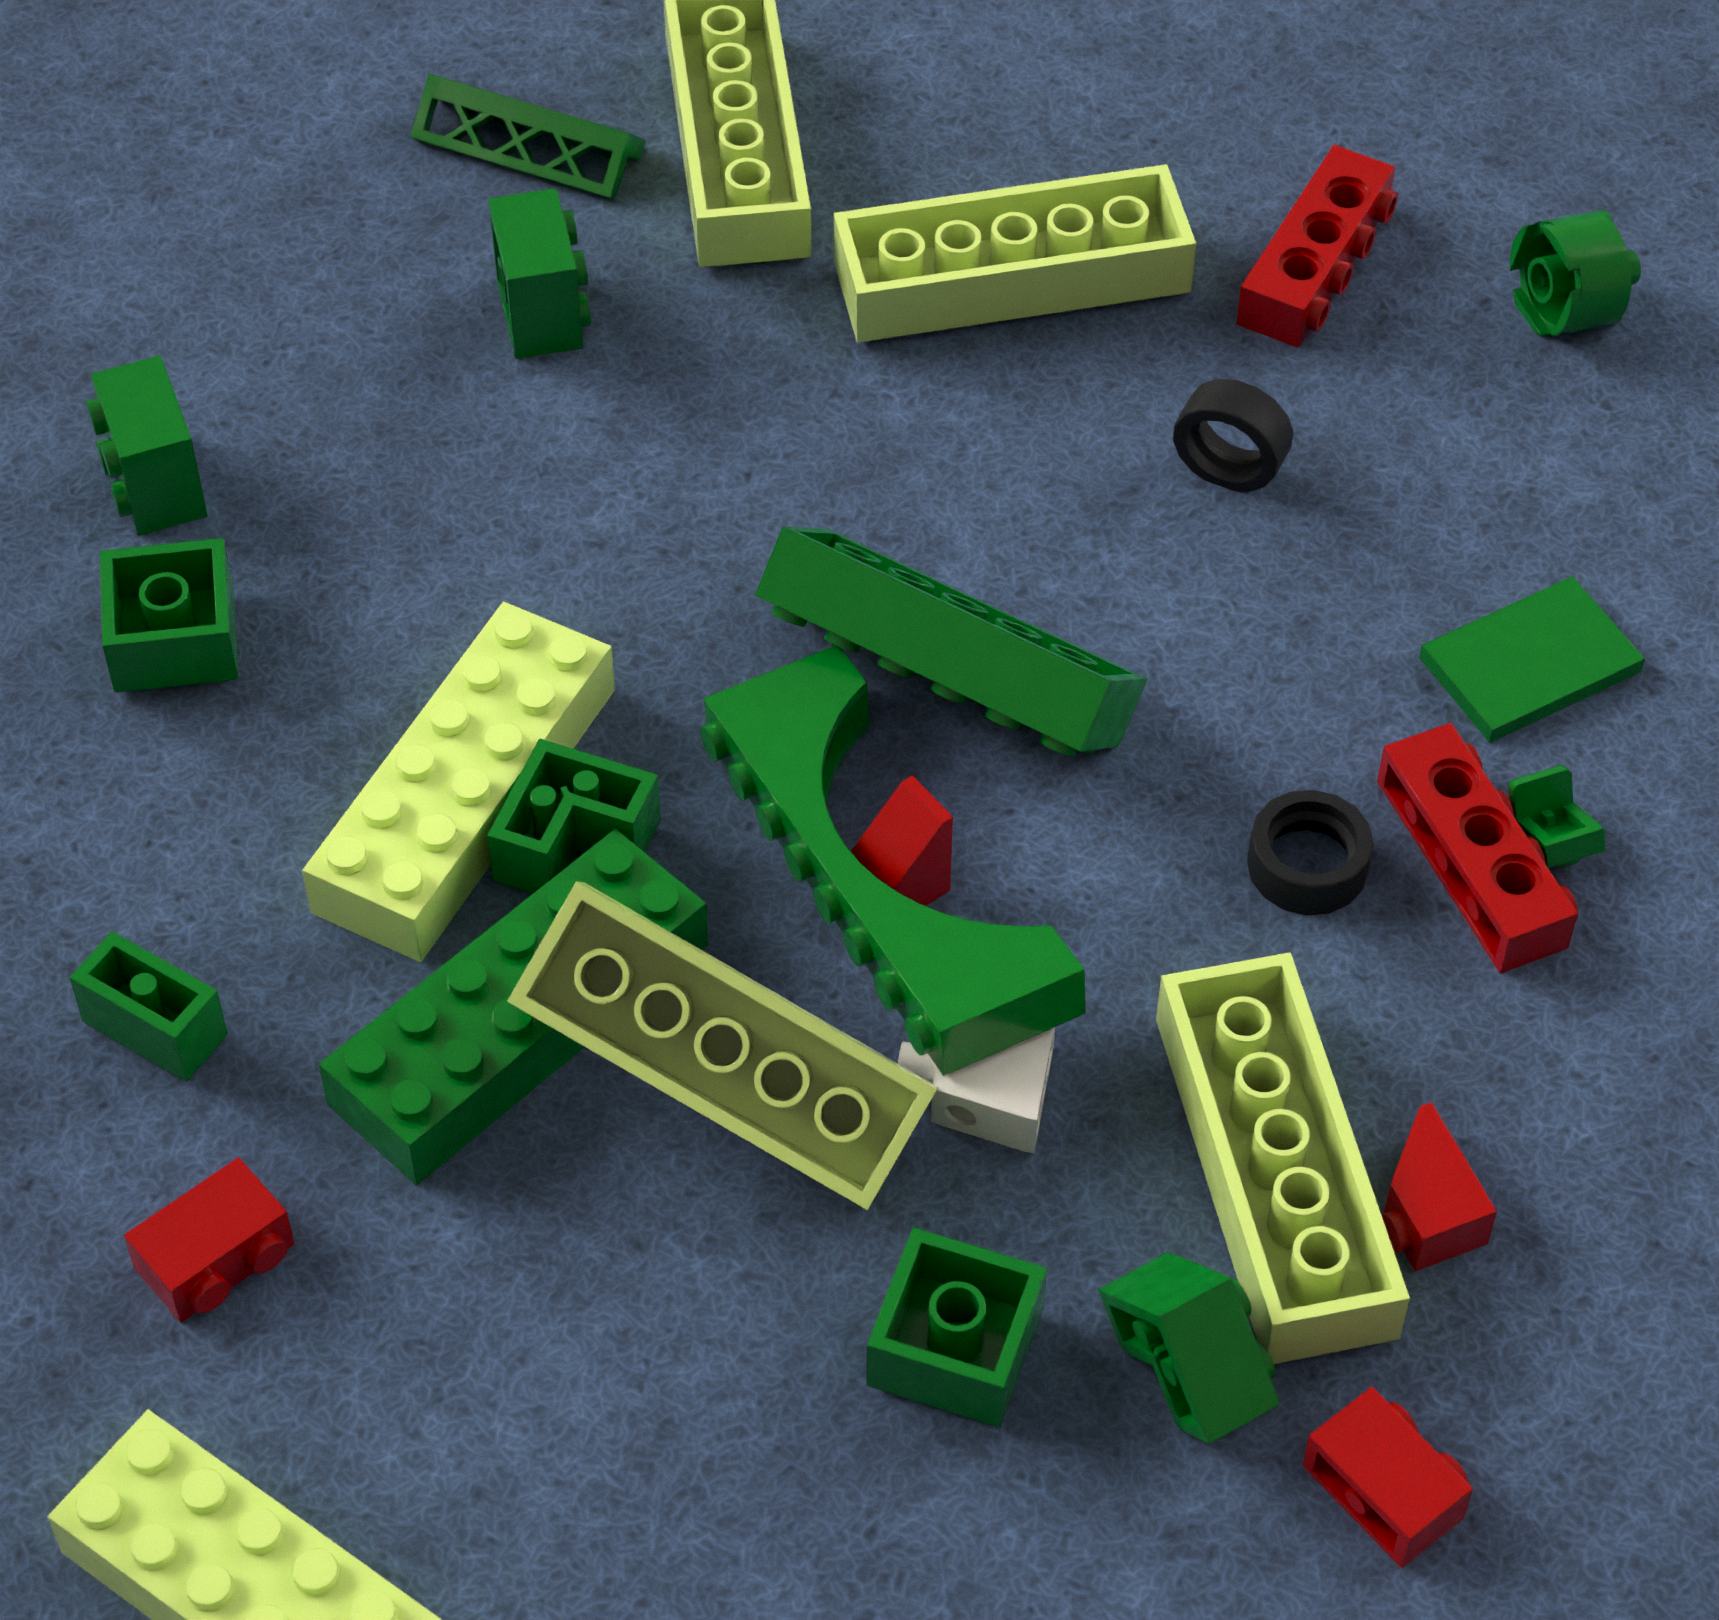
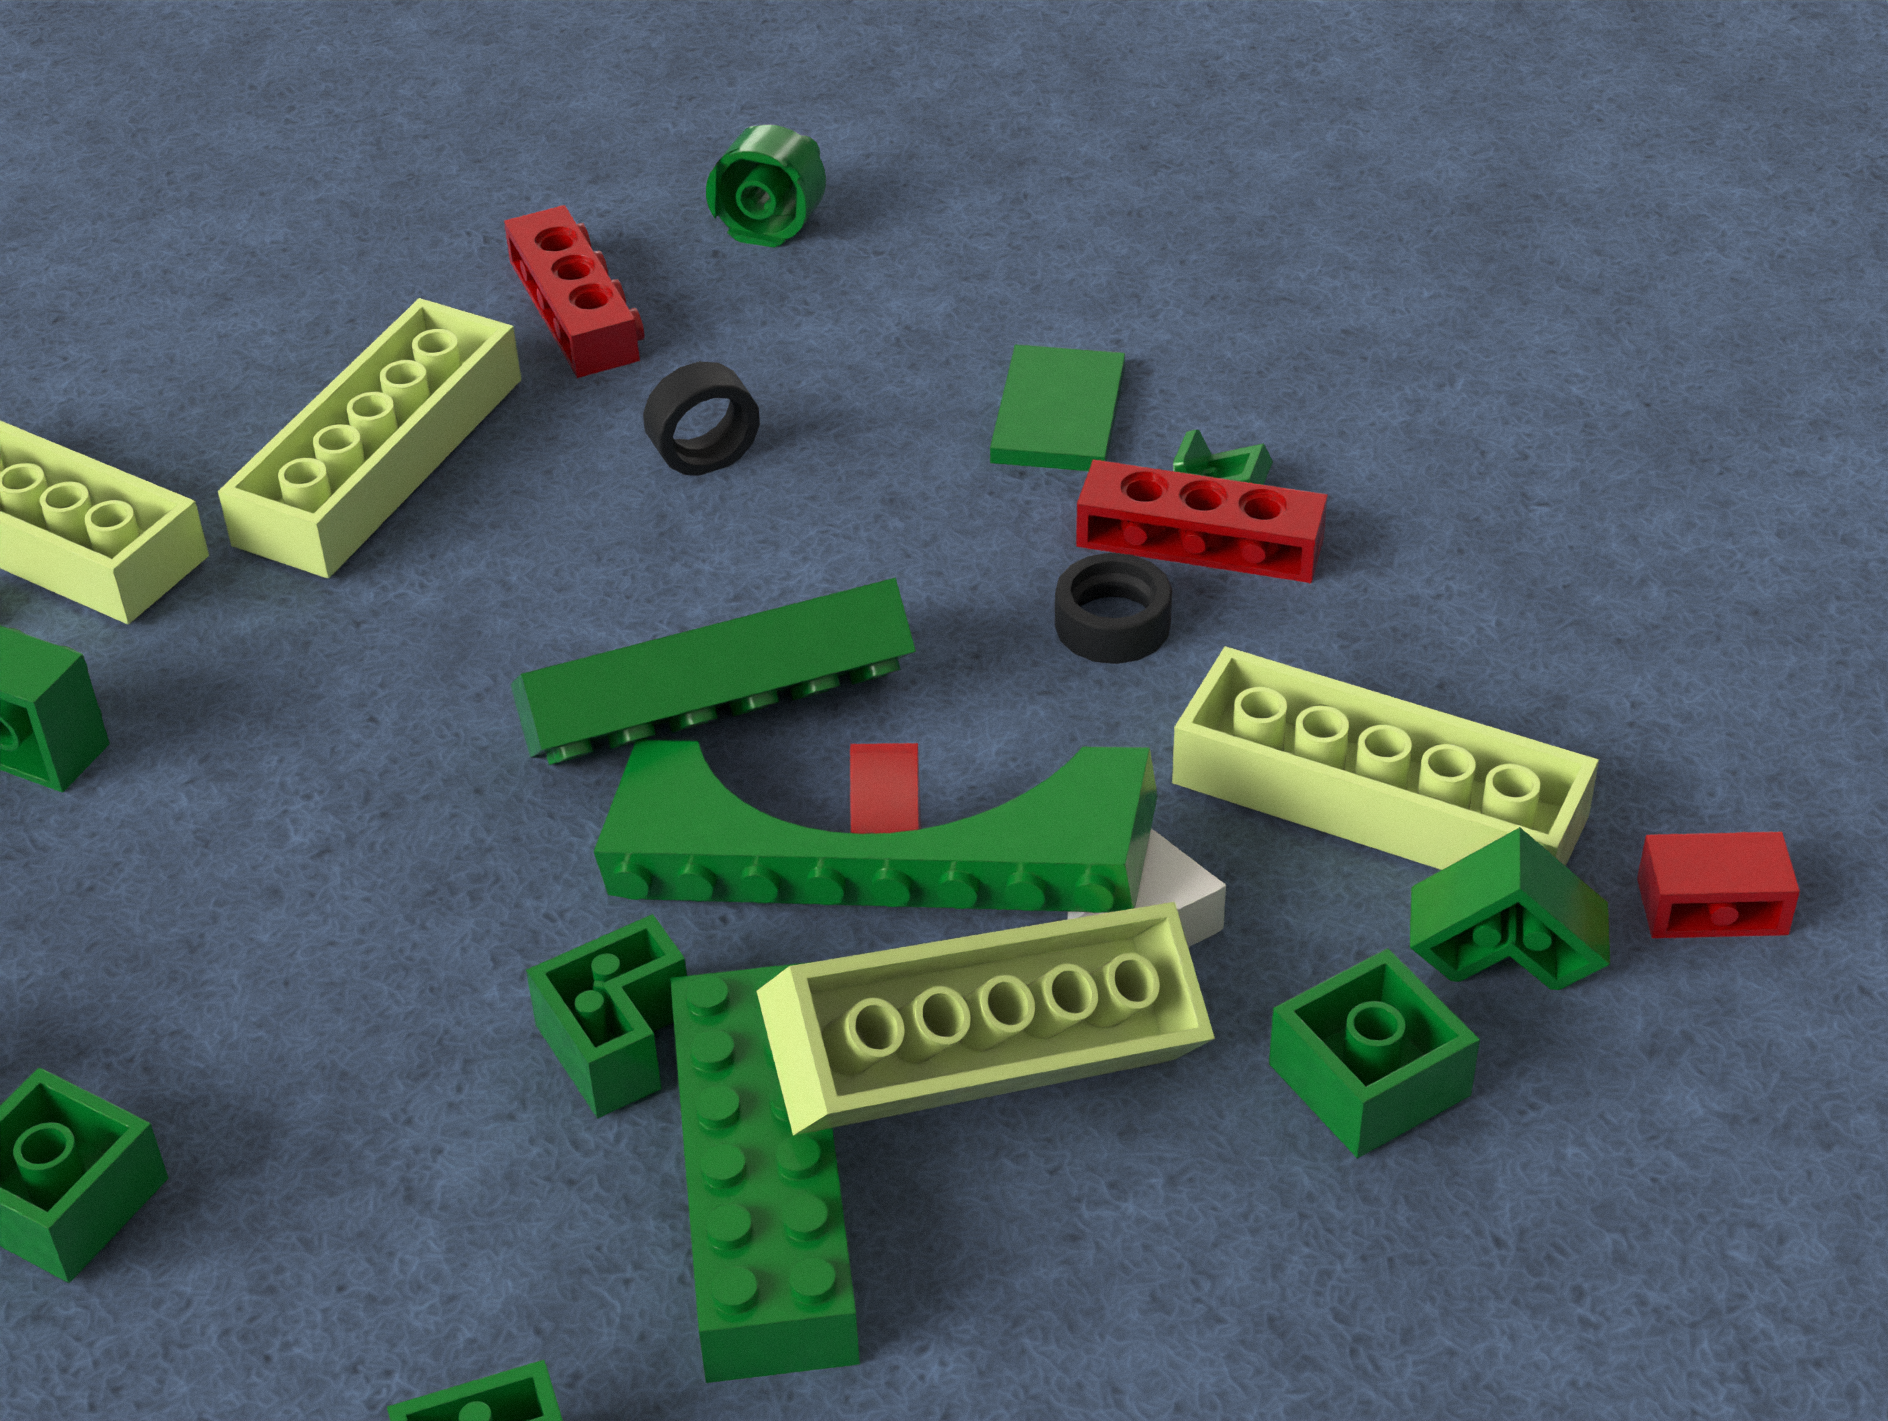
camera: 50 degrees left, 10 degrees down
(423, 819) = (485, 1074): yellowish green brick -> none
(1435, 1197) = (1483, 697): red slope -> none

